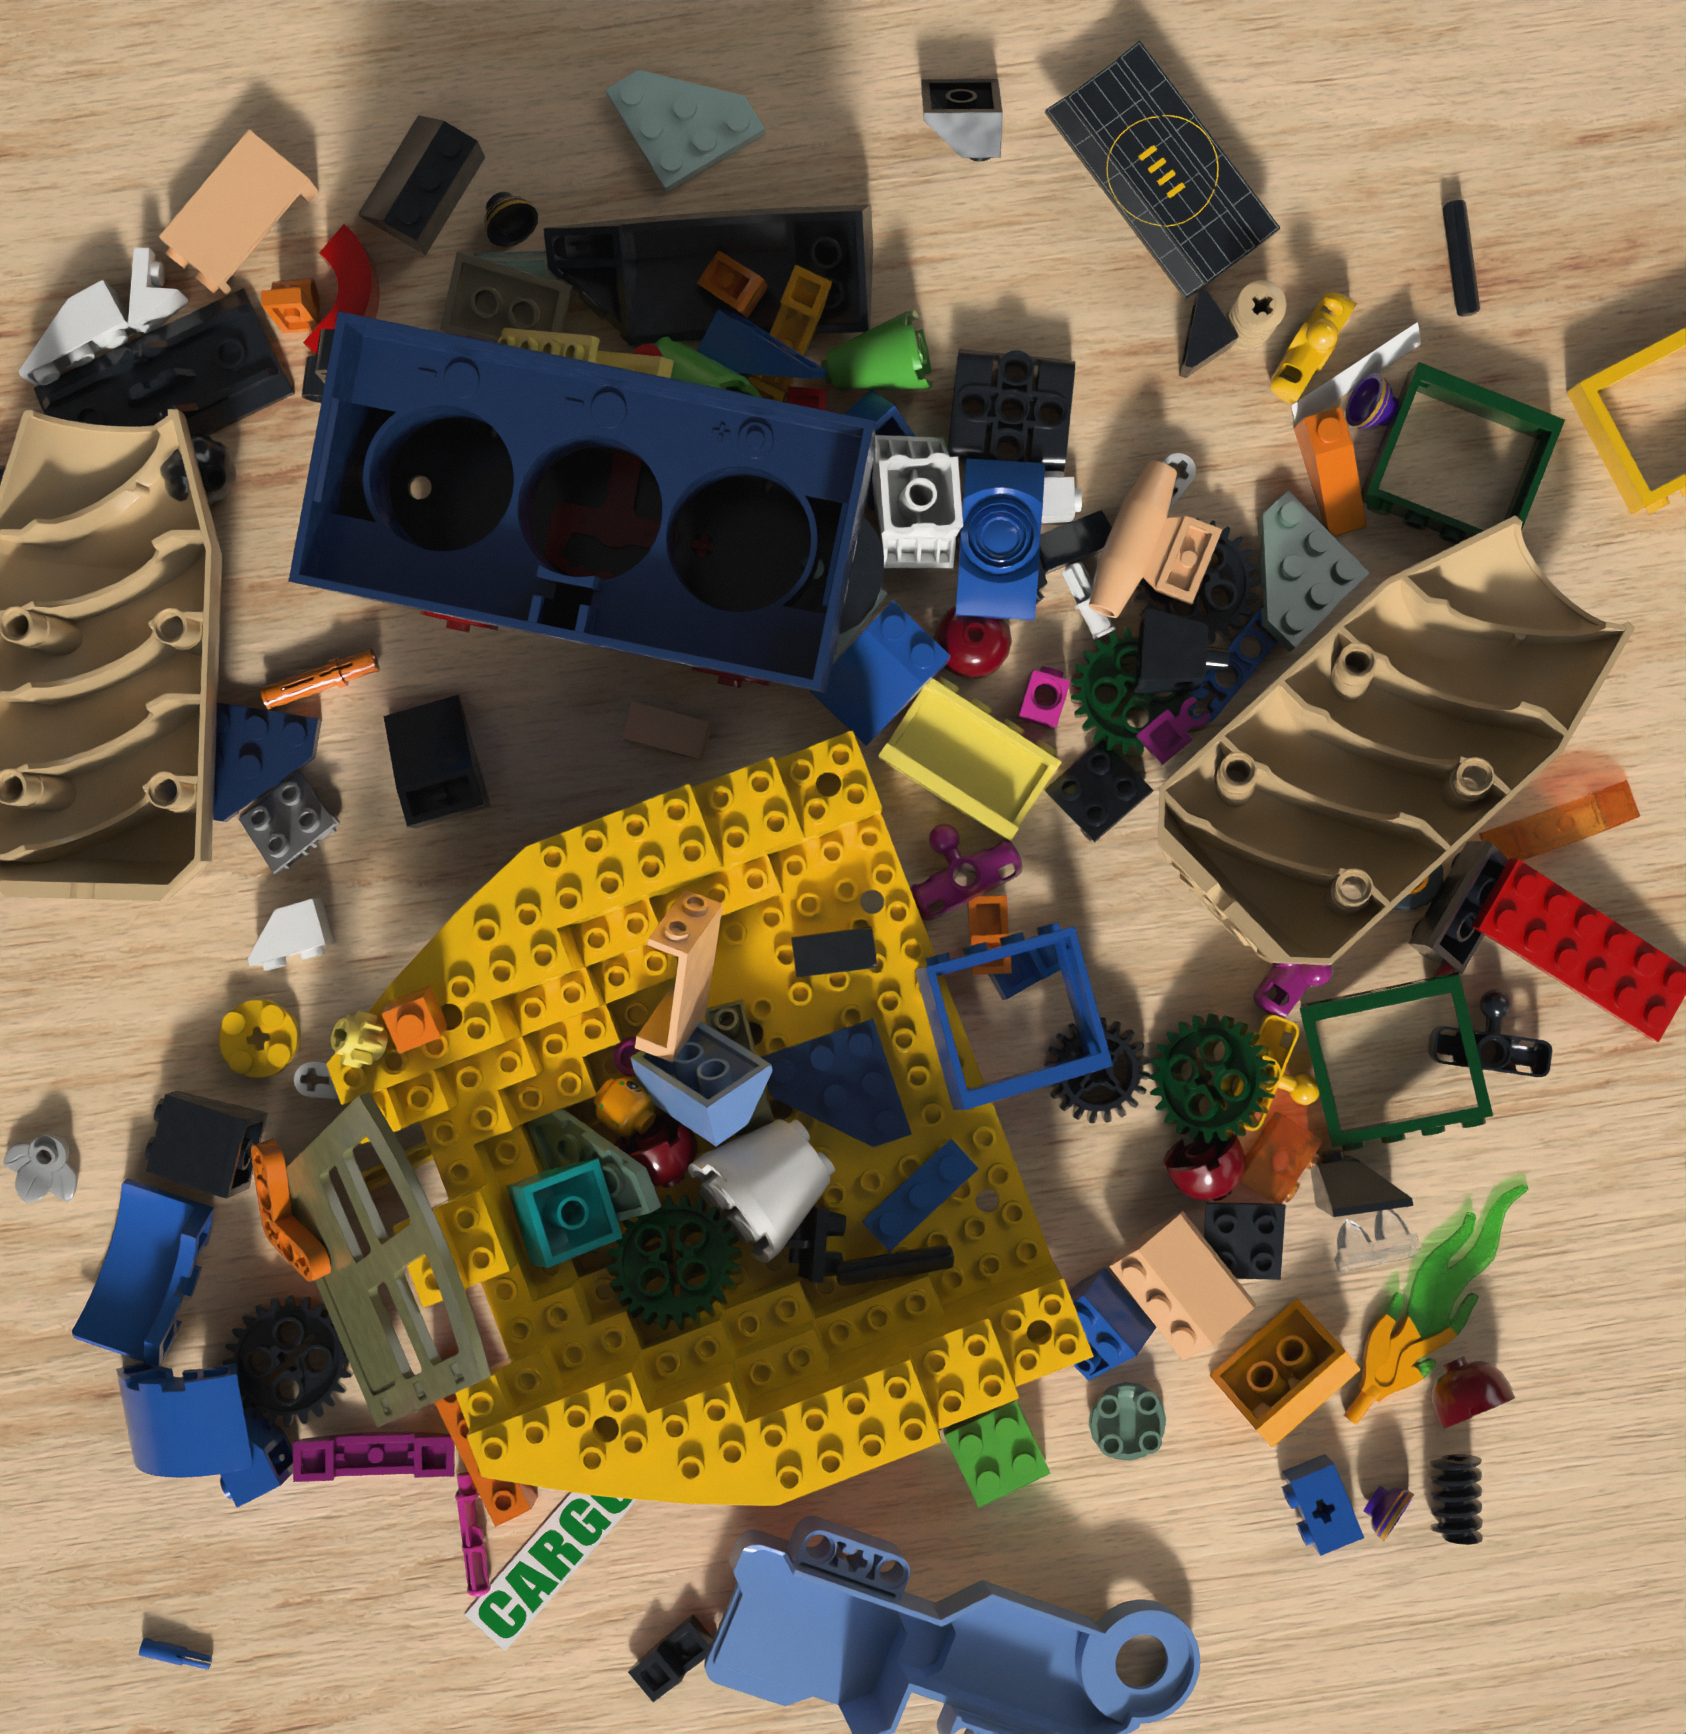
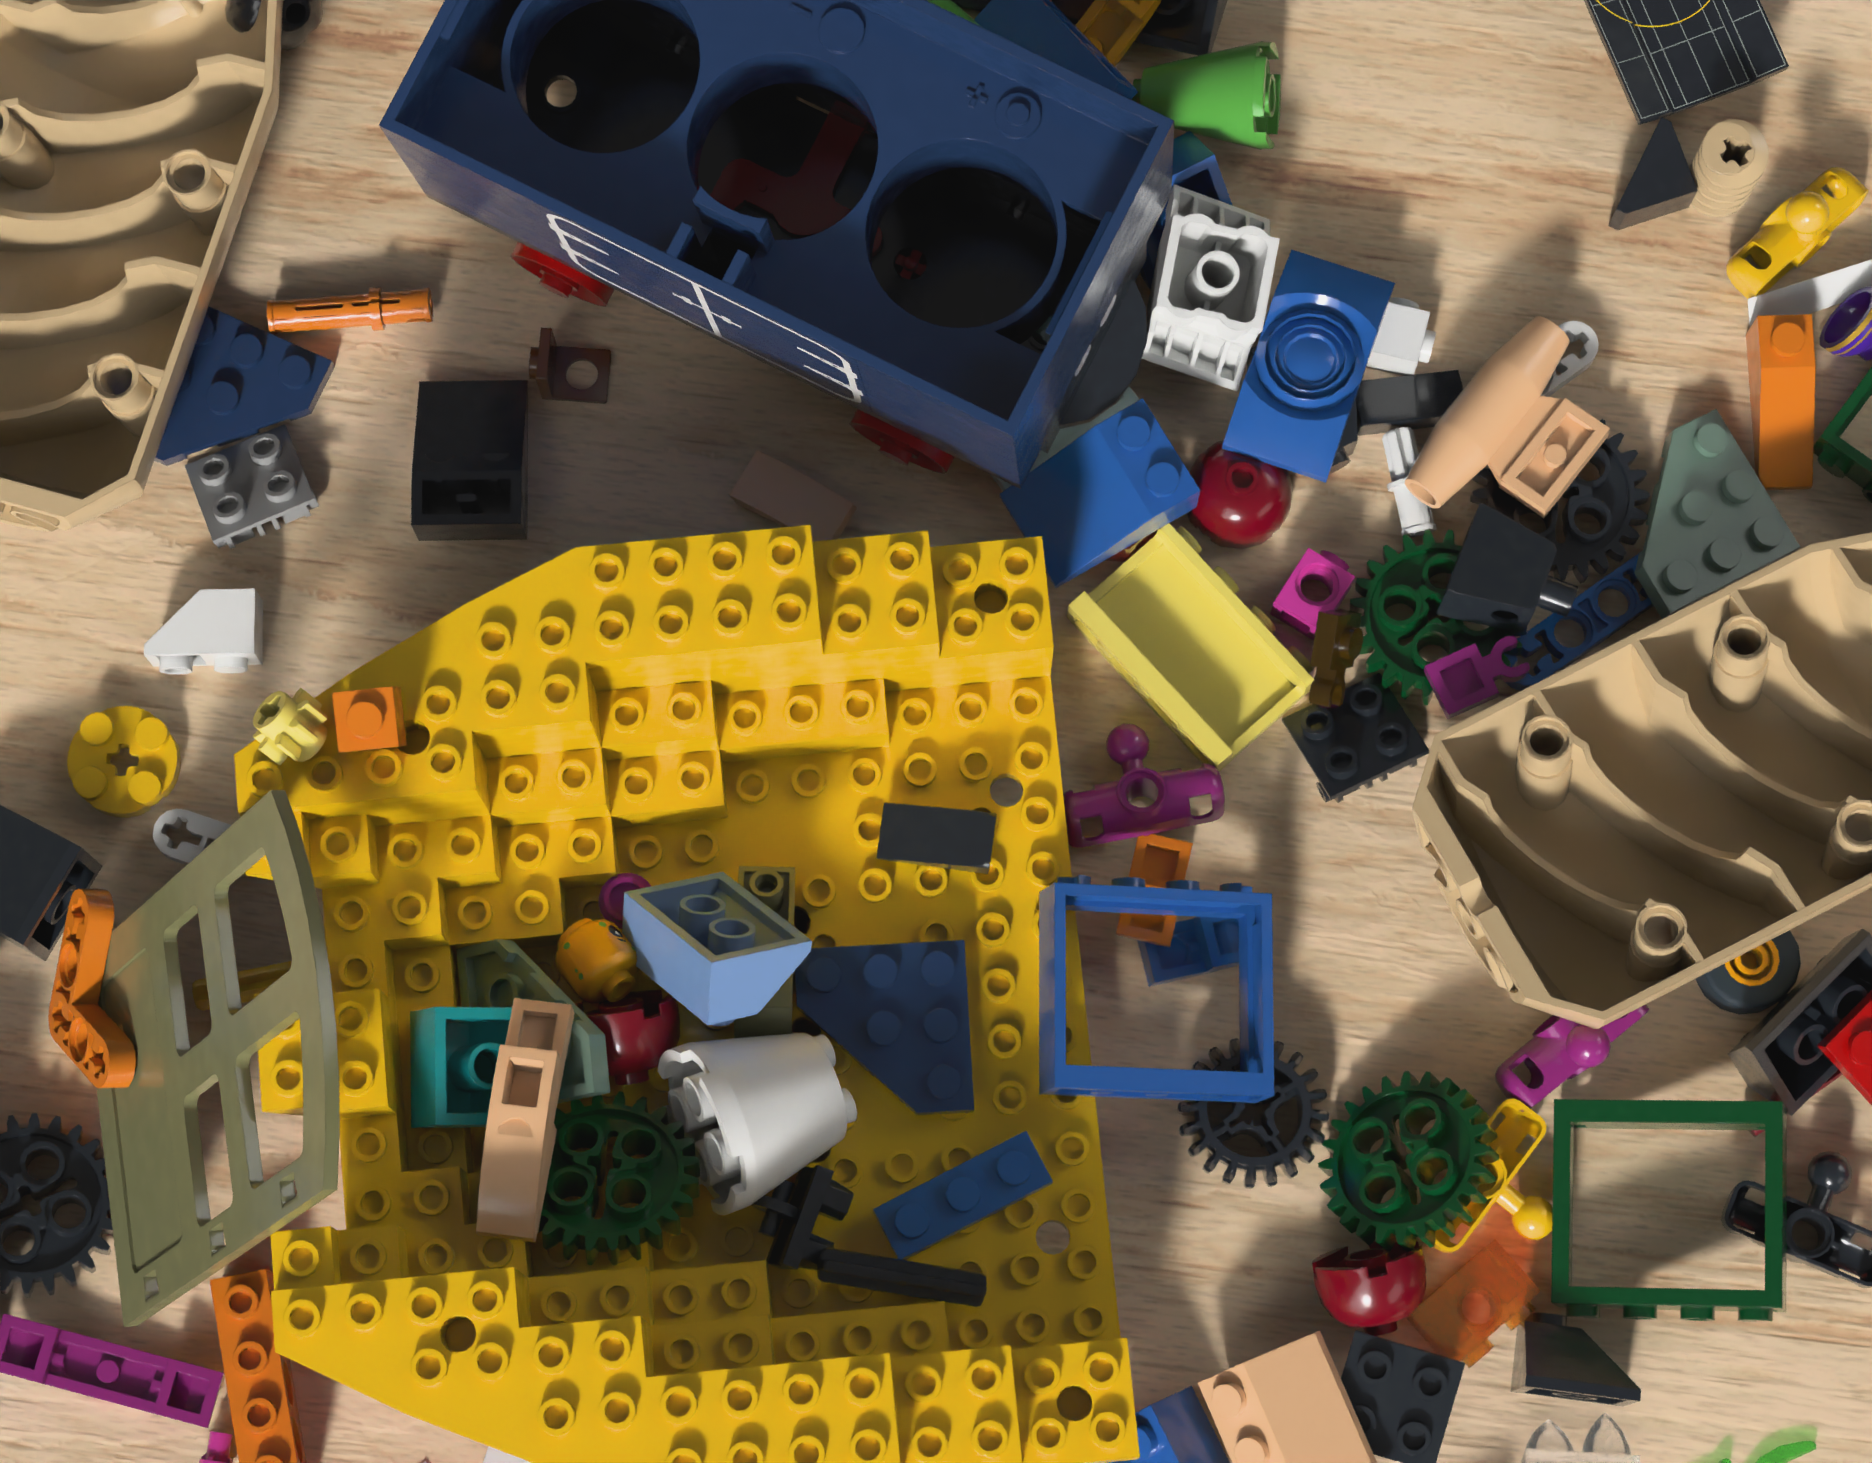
camera: 15 degrees right, 10 degrees down
(470, 679) = (550, 364): none -> reddish brown bracket
(605, 1247) = (521, 1120): none -> light nougat slope
(692, 935) = (761, 730): light nougat panel -> none
(1052, 390) = (1329, 160): black connector -> none
(1070, 734) = (1334, 649): none -> dark brown plate

